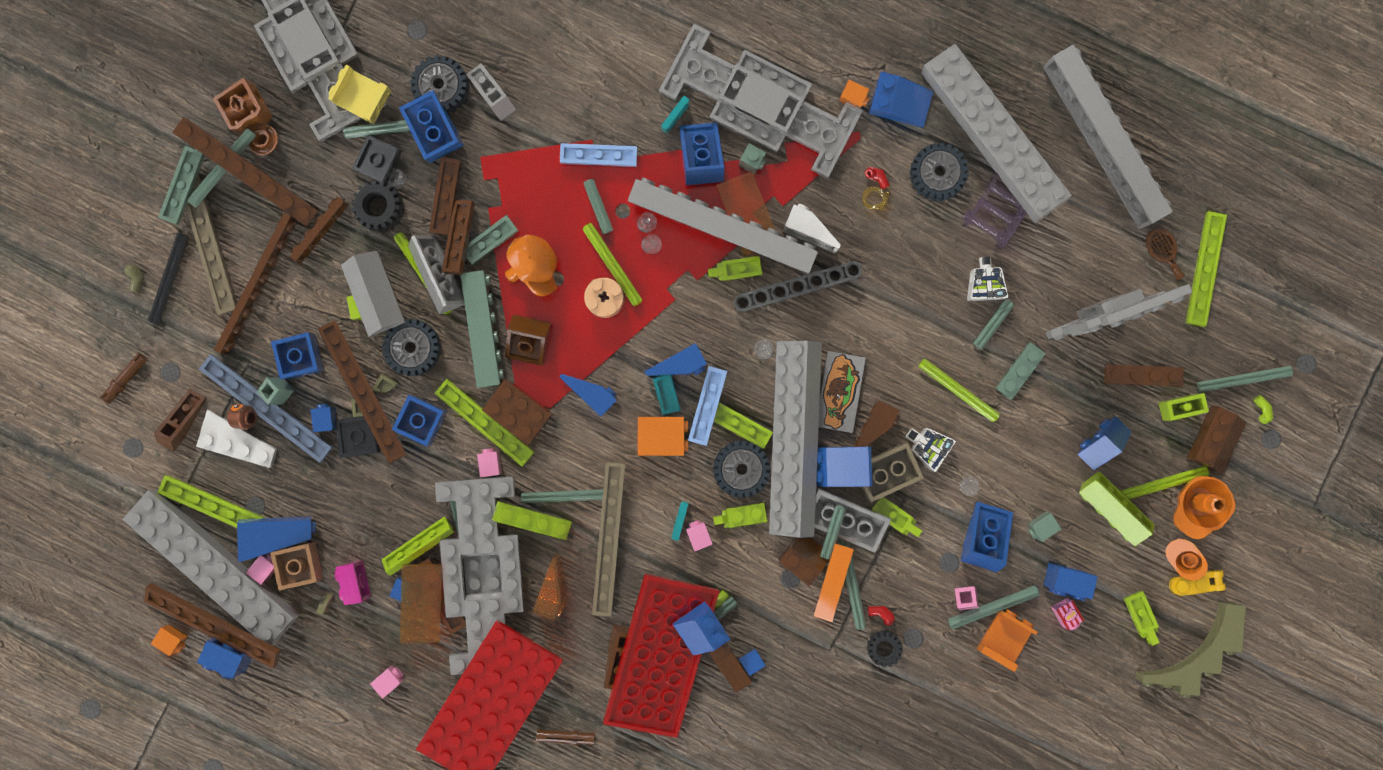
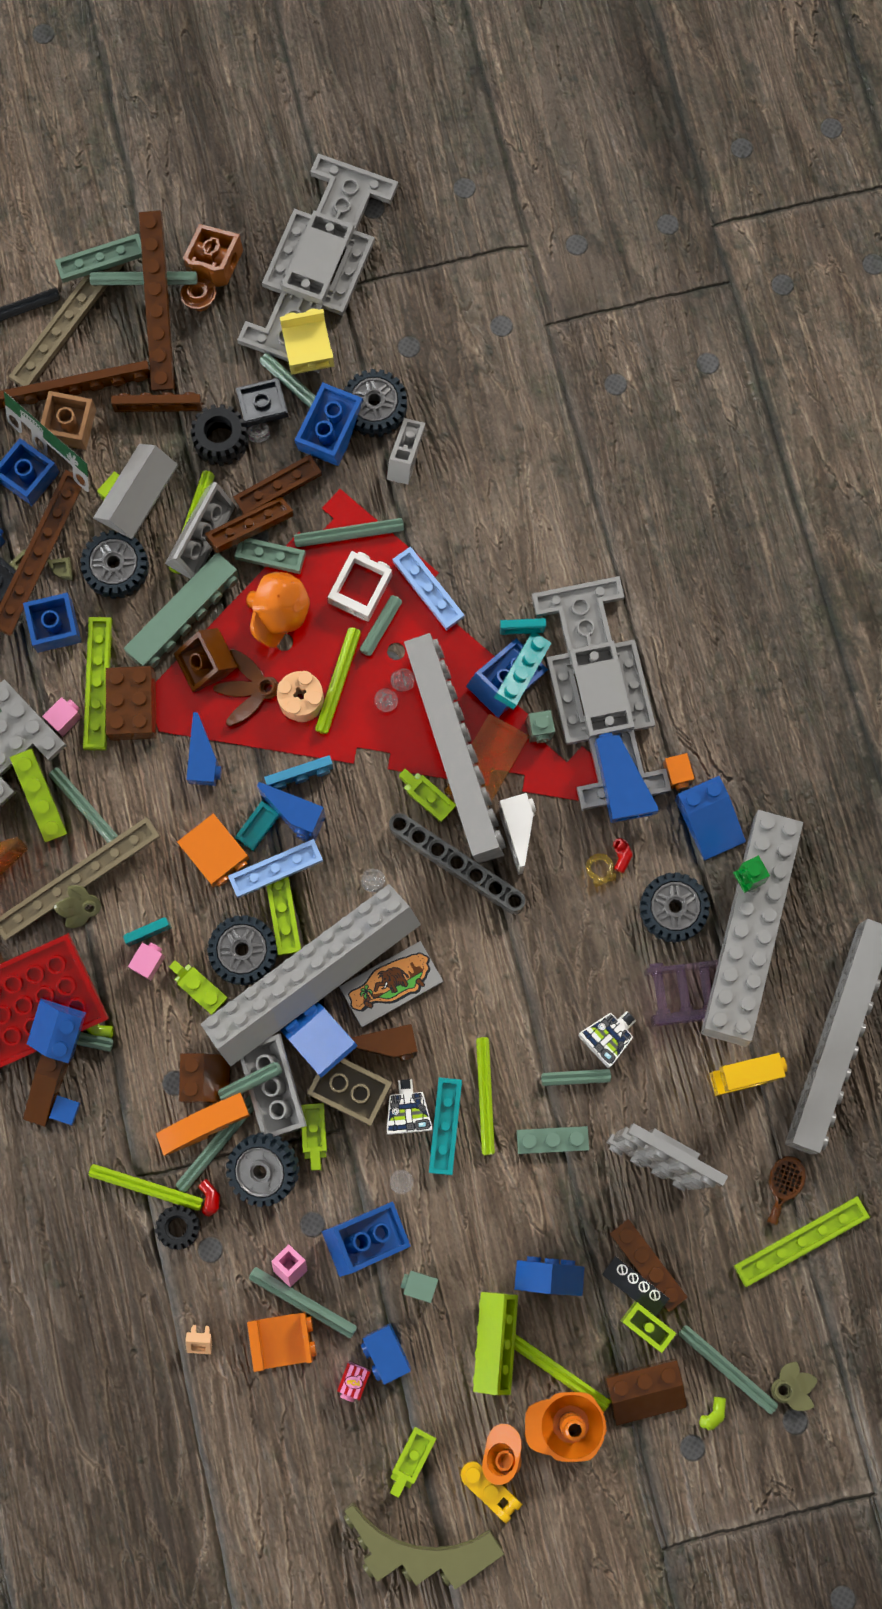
camera: 50 degrees right, 10 degrees down
(283, 299) = (69, 418): none -> medium nougat brick
(286, 323) = (46, 437): none -> piece
(516, 175) = (348, 532): none -> sand green axle
(569, 214) = (350, 605): none -> white window
(573, 322) = (255, 689): none -> reddish brown plant
(626, 553) = (74, 906): none -> olive plate
(655, 340) = (300, 773): none -> dark azure plate
(707, 139) = (522, 670): none -> plate
(833, 136) = (622, 783): none -> blue slope
(843, 649) = (145, 1187): none -> lime axle
(897, 580) = (250, 1181): none -> wheel
(958, 431) = (445, 1126): none -> teal plate
(966, 104) = (751, 874): none -> green brick
(966, 691) = (199, 1342): none -> light nougat tile
(1089, 215) = (748, 1074): none -> yellow arch
(1151, 394) = (635, 1286): none -> black sticker
(1289, 346) = (797, 1386): none -> olive plate

